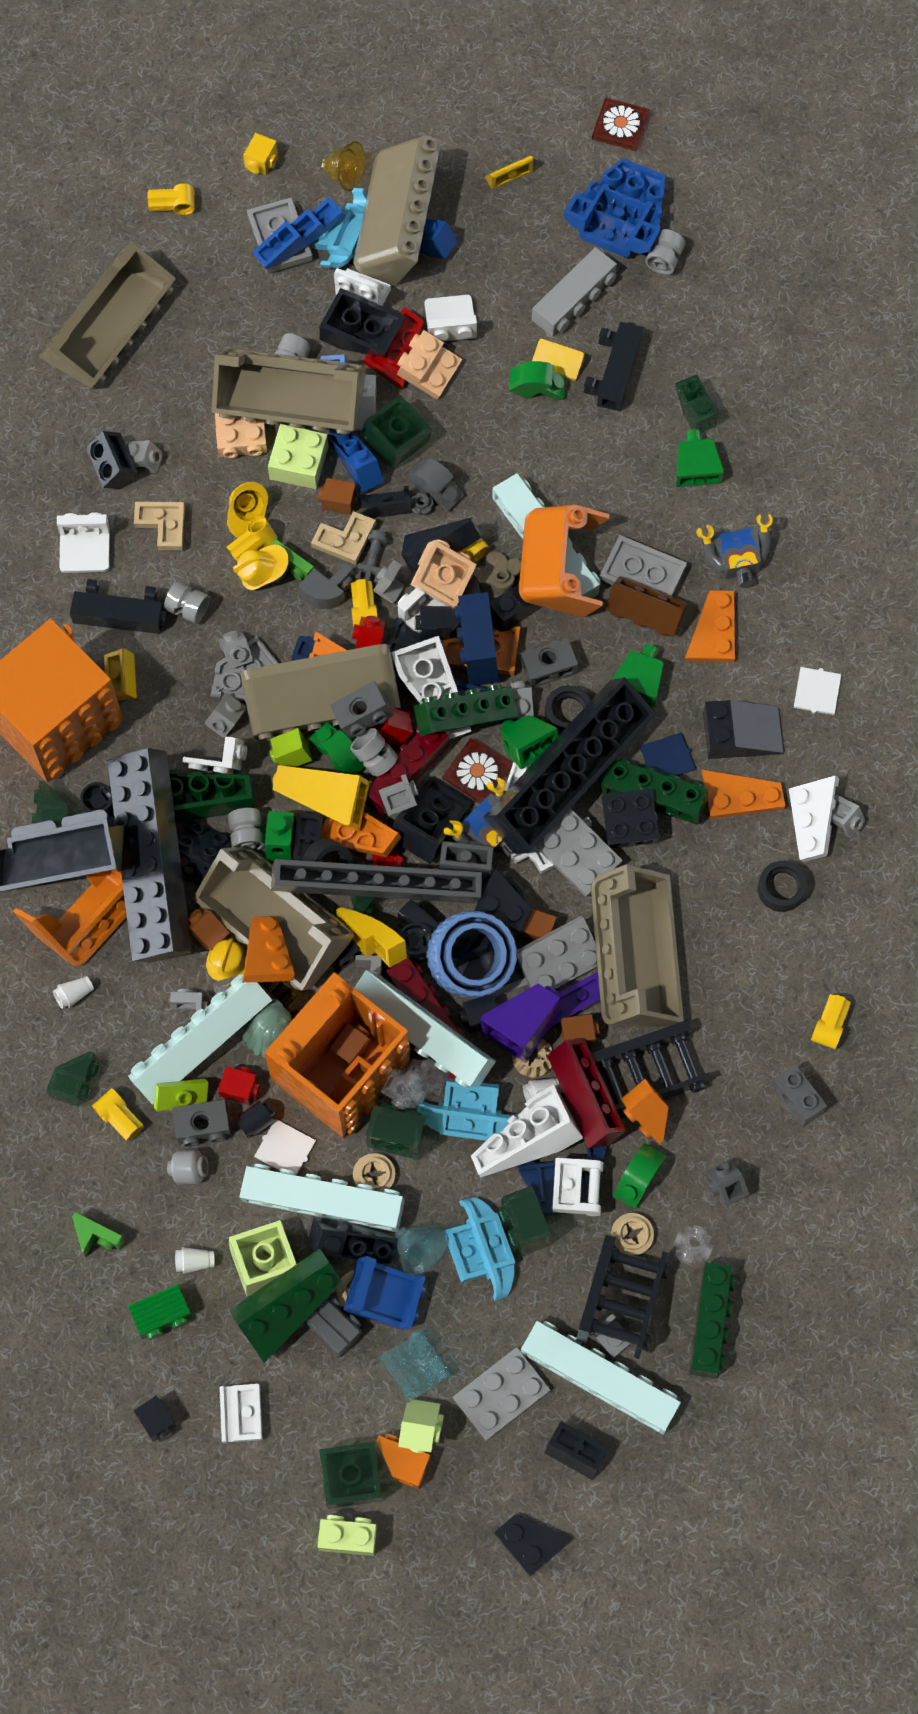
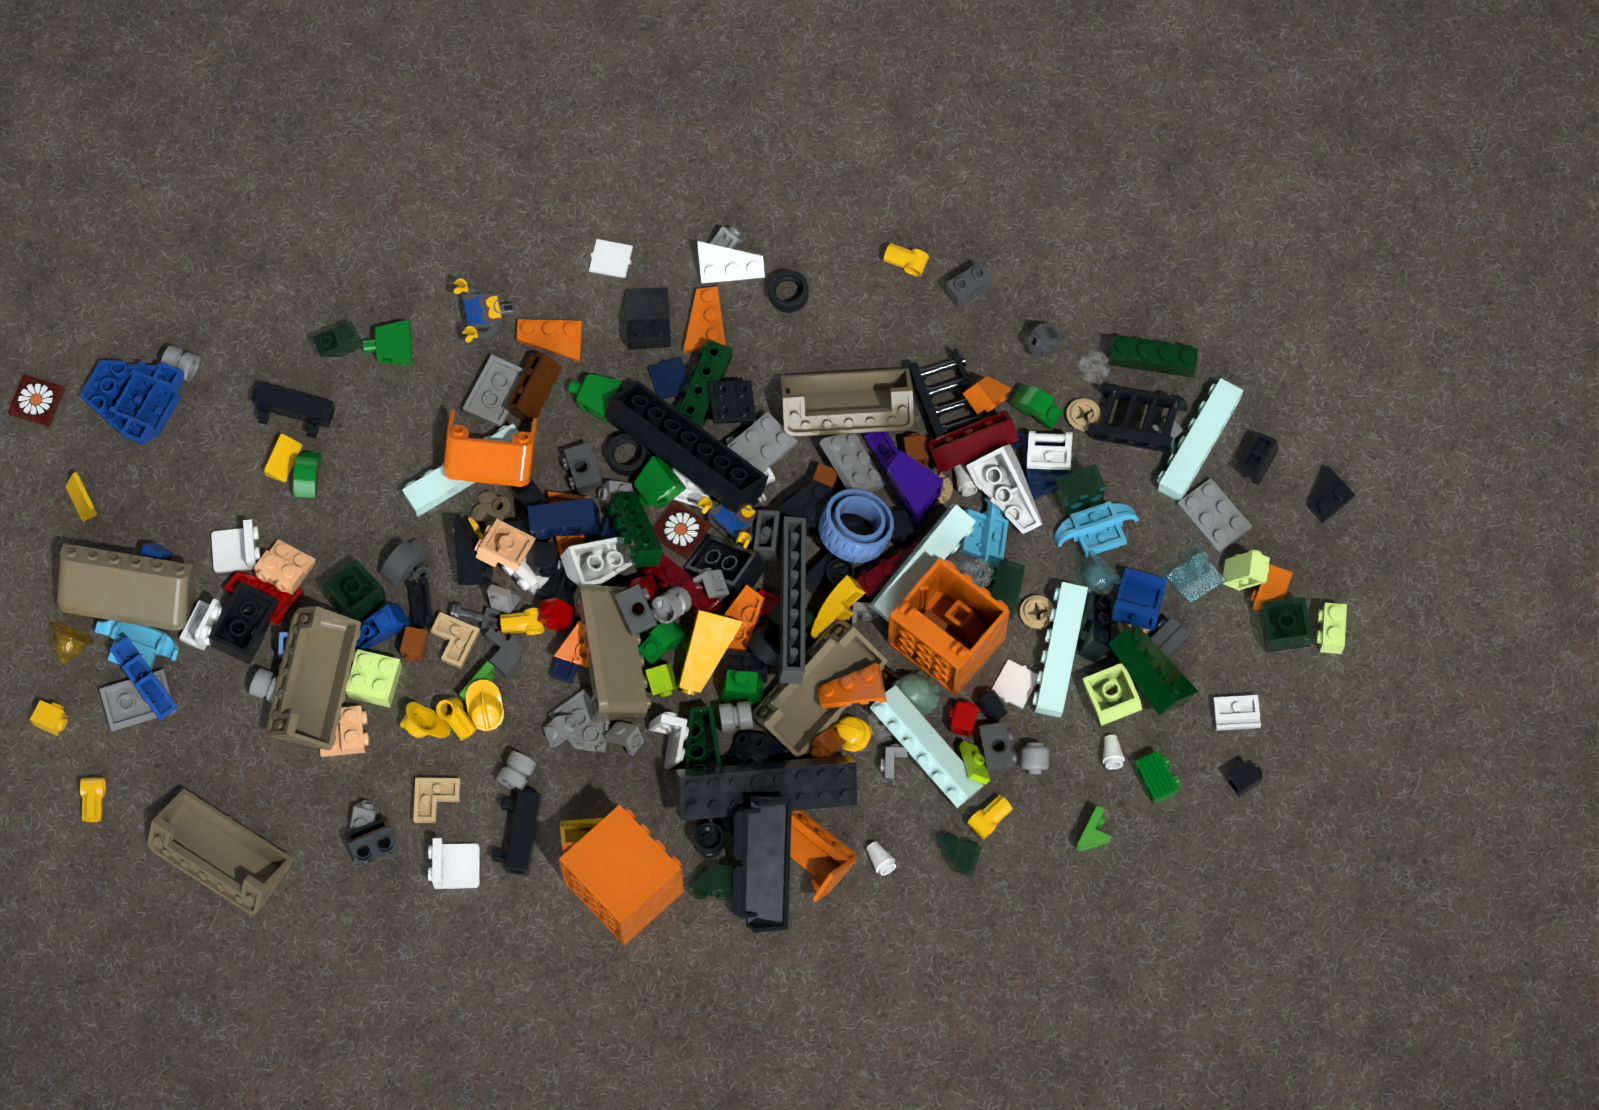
camera: 90 degrees left, 0 degrees up
(574, 292) = (215, 442): light grey brick -> none

